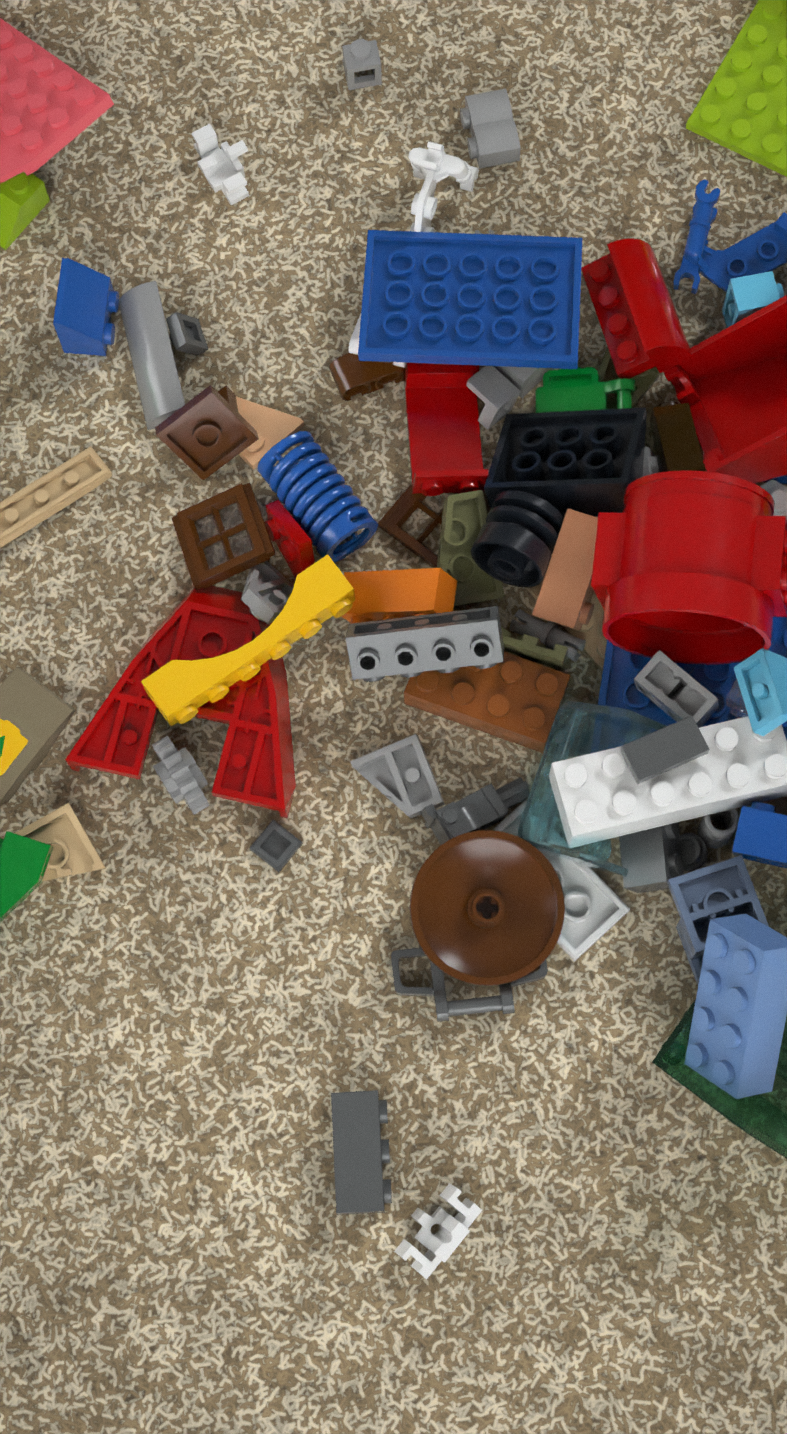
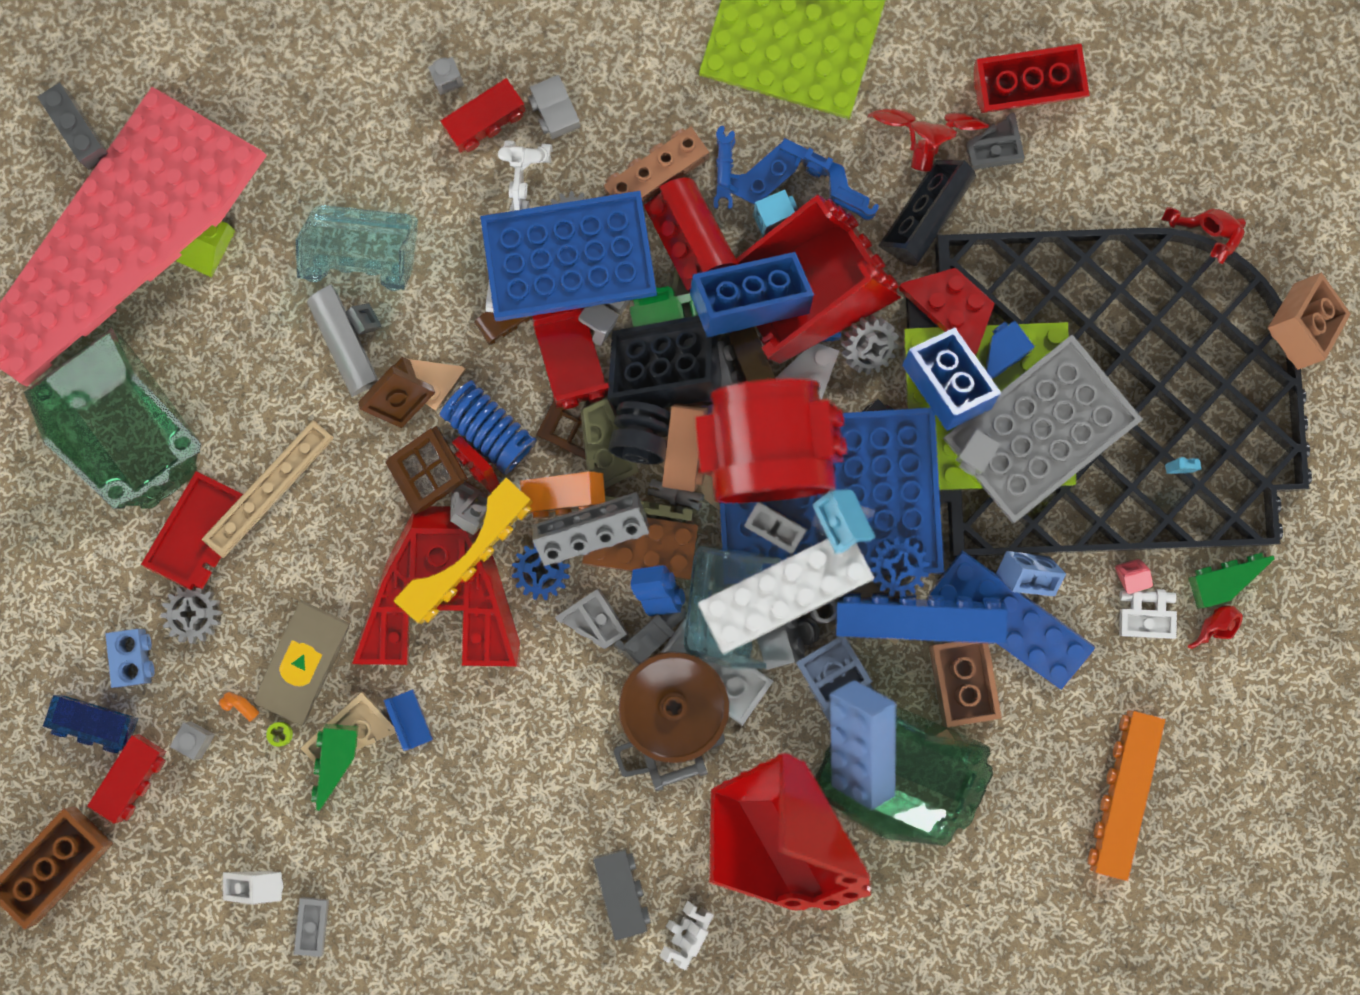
camera: 15 degrees left, 10 degrees up
(84, 309) = (283, 317): blue slope -> none
(122, 855) = (408, 720): none -> blue panel
(180, 775) = (436, 657): light grey gear -> none
(201, 240) = (358, 243): none -> clear light blue windscreen
(221, 165) = (358, 177): white piece -> none
(276, 846) = (515, 689): dark grey tile -> none
(331, 689) = (537, 588): none -> blue gear
(398, 121) = (484, 116): none -> red brick
(497, 749) = (657, 590): none -> blue brick
(604, 1121) = (782, 840): none -> red windscreen
(637, 215) = (662, 165): none -> nougat brick
(664, 749) = (775, 578): dark grey tile -> none
(702, 390) = (751, 294): none -> blue brick

